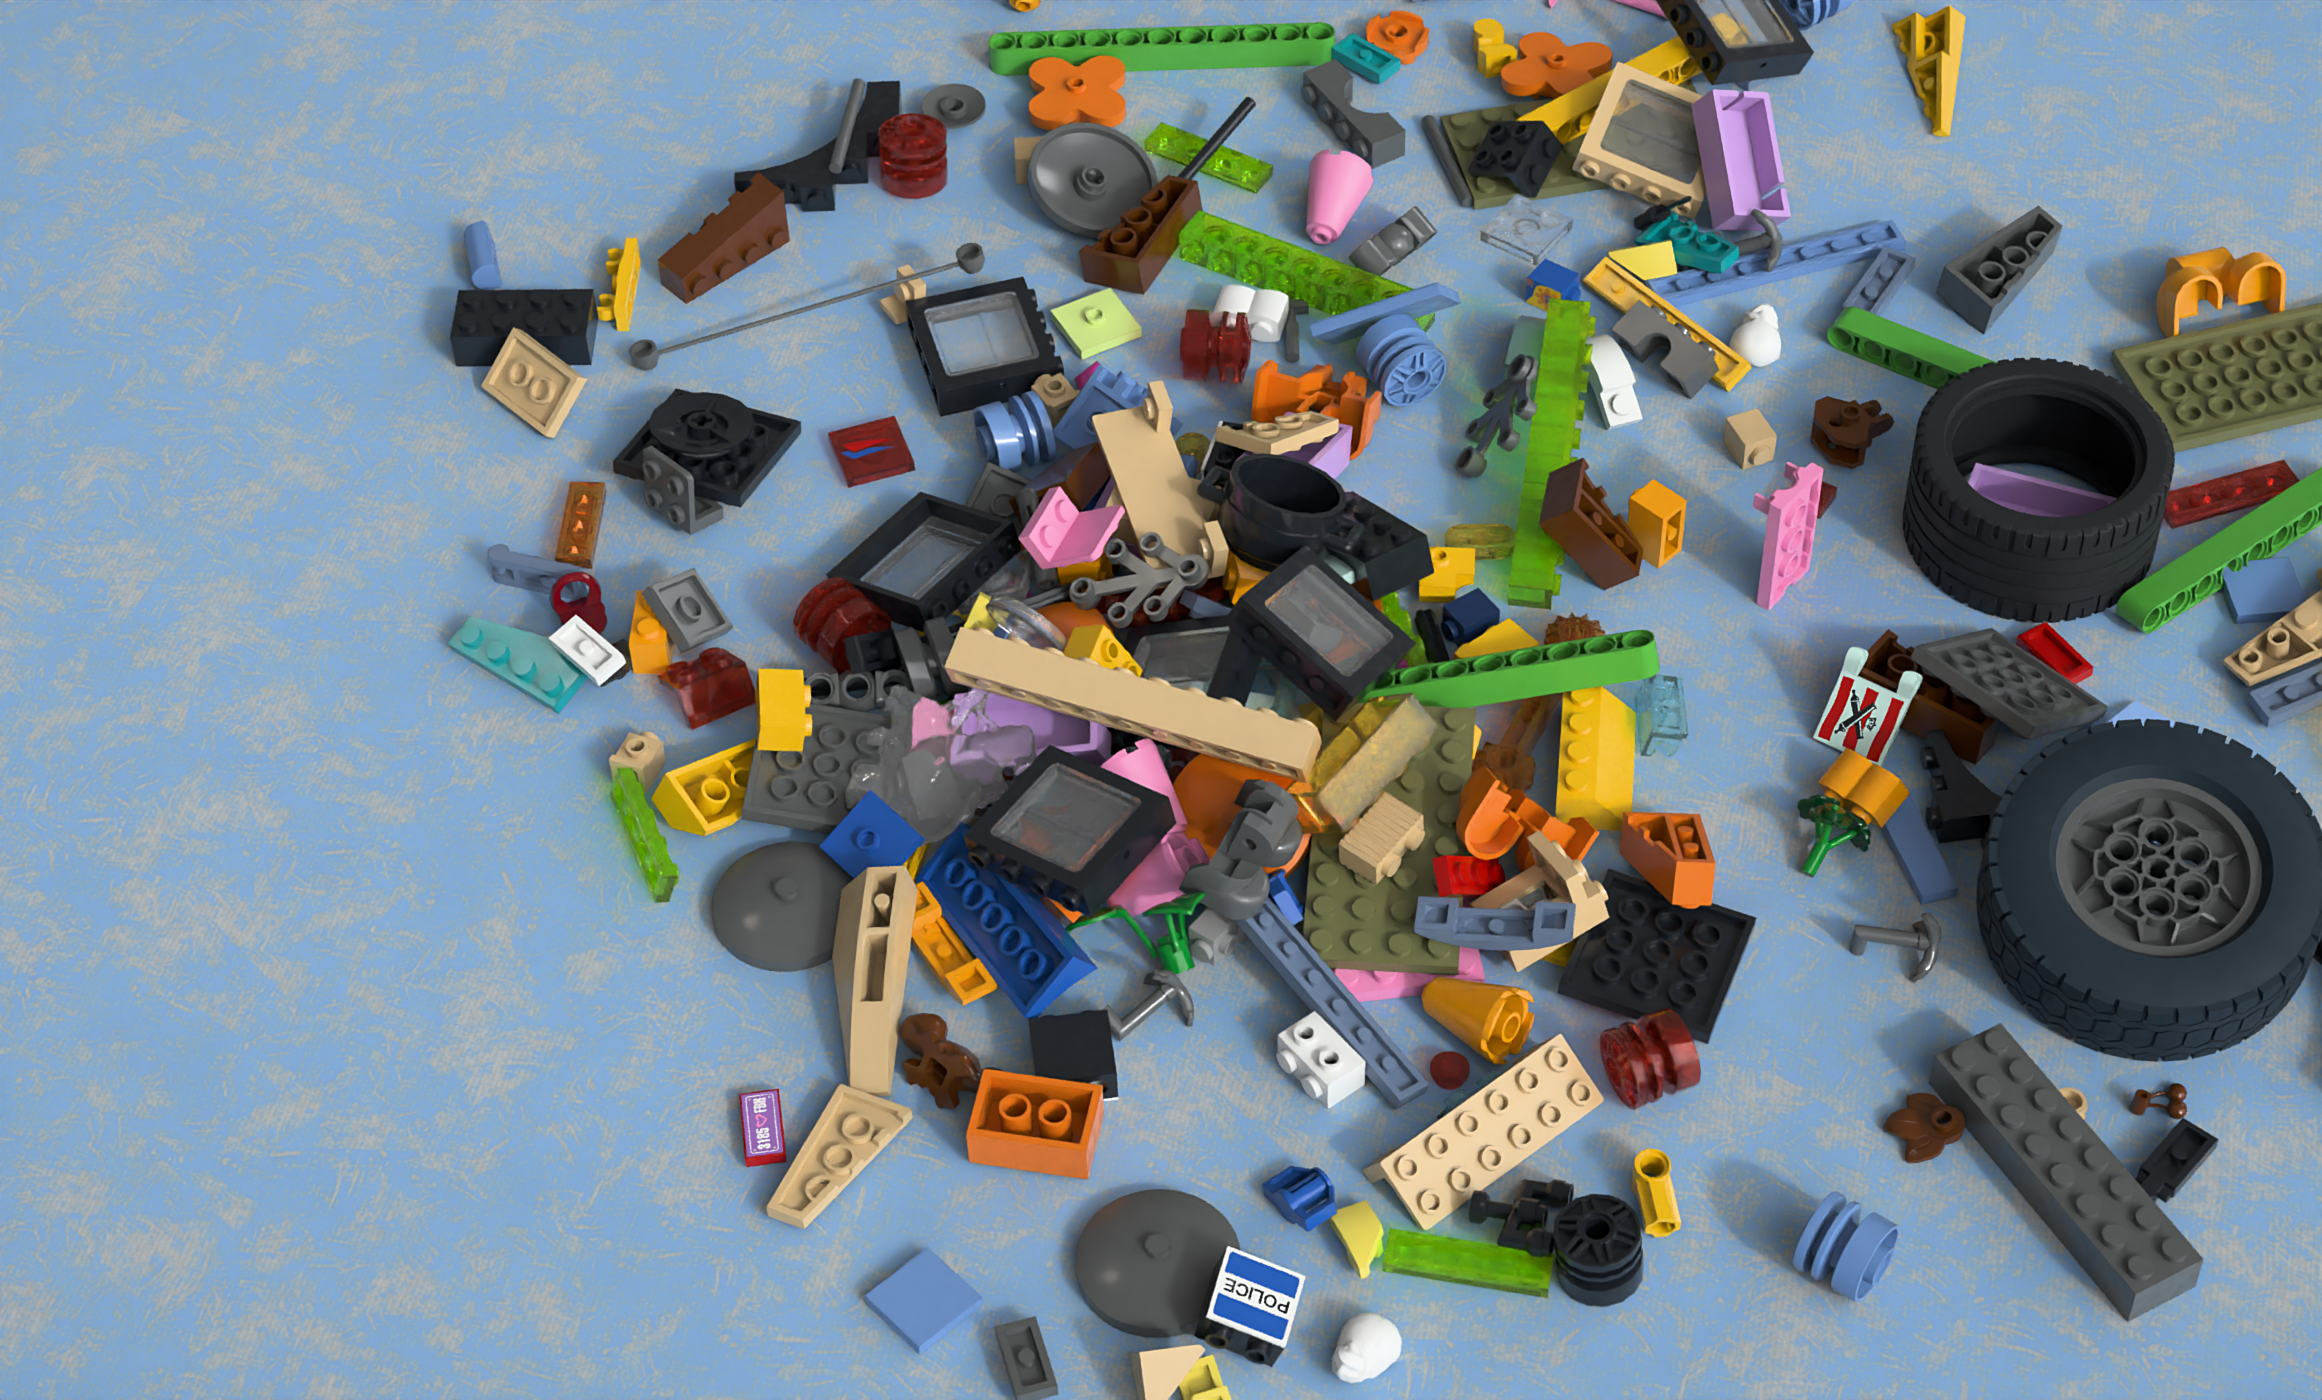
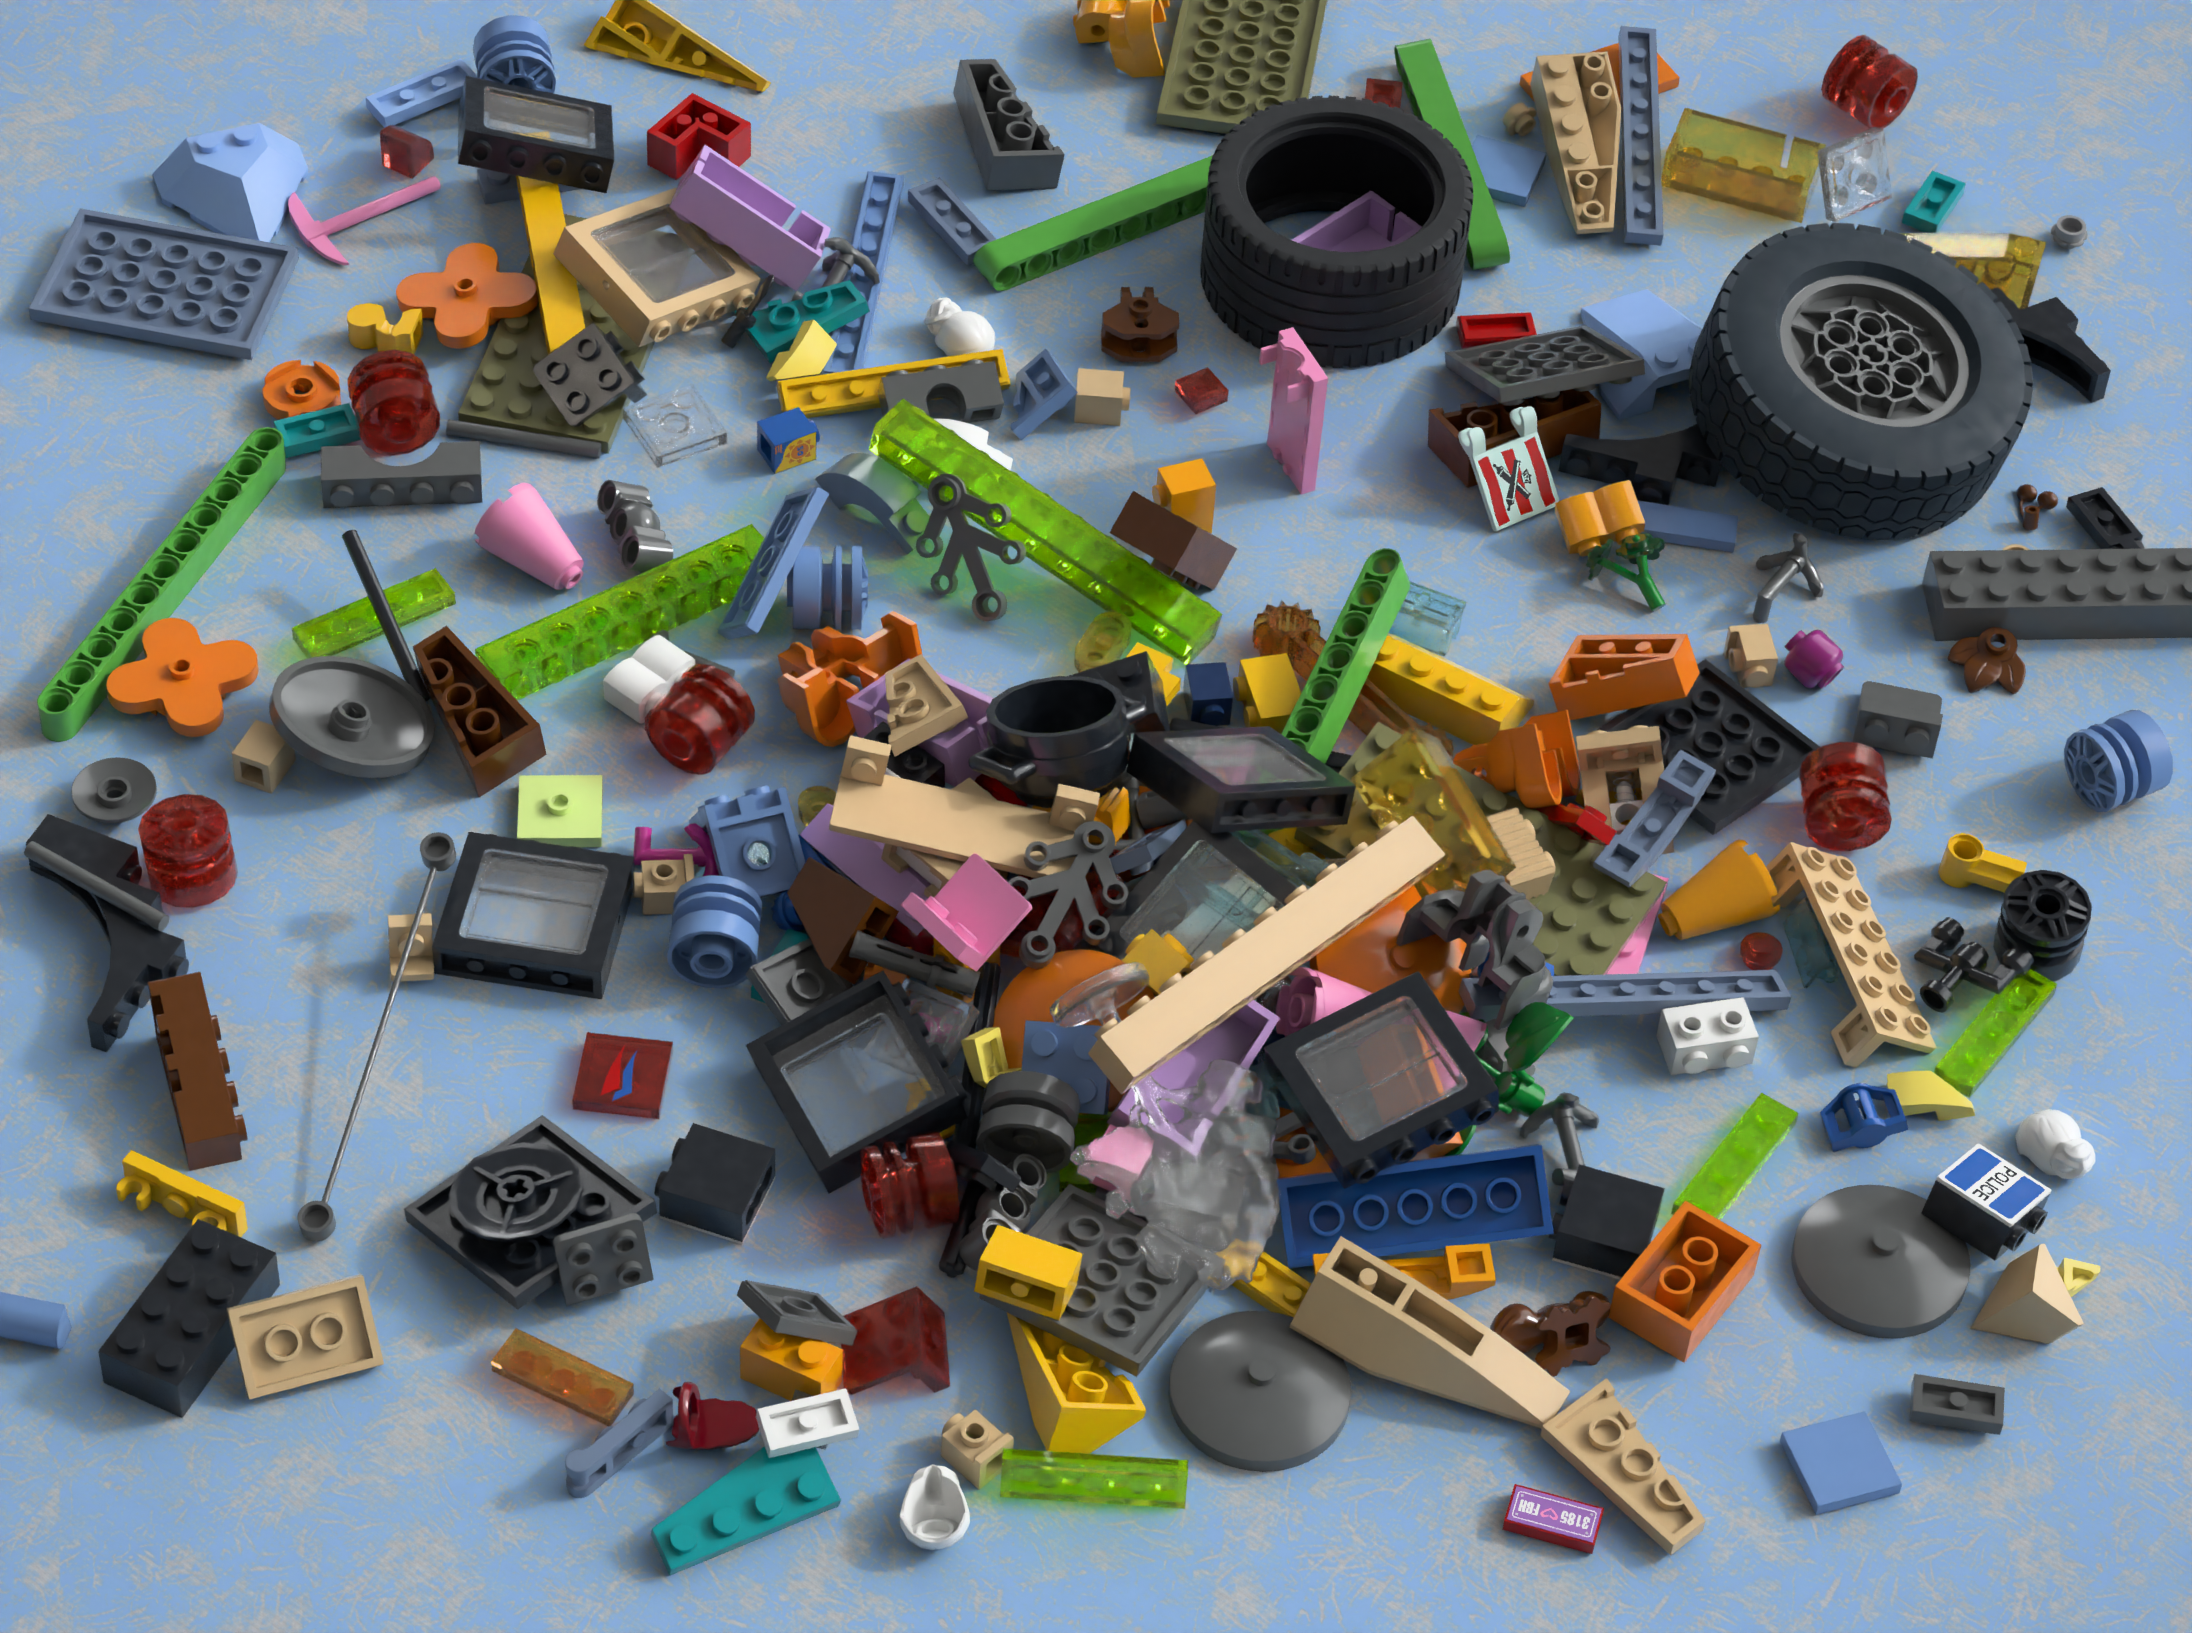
camera: 70 degrees left, 0 degrees up
(566, 755) = (934, 1509): none -> white hair
(794, 532) = (715, 1183): none -> black piece
(871, 837) = (1246, 1272): blue plate -> none
(1203, 1128) = (1739, 1157): none -> clear neon green plate
(1407, 73) = (393, 402): none -> clear red wheel
(1724, 403) = (1040, 393): none -> medium blue wing
(1789, 950) = (1751, 654): none -> tan brick
(1794, 1078) = (1898, 719): none -> dark grey bracket
(1816, 993) = (1813, 659): none -> magenta head
(1827, 108) = (690, 126): none -> red brick

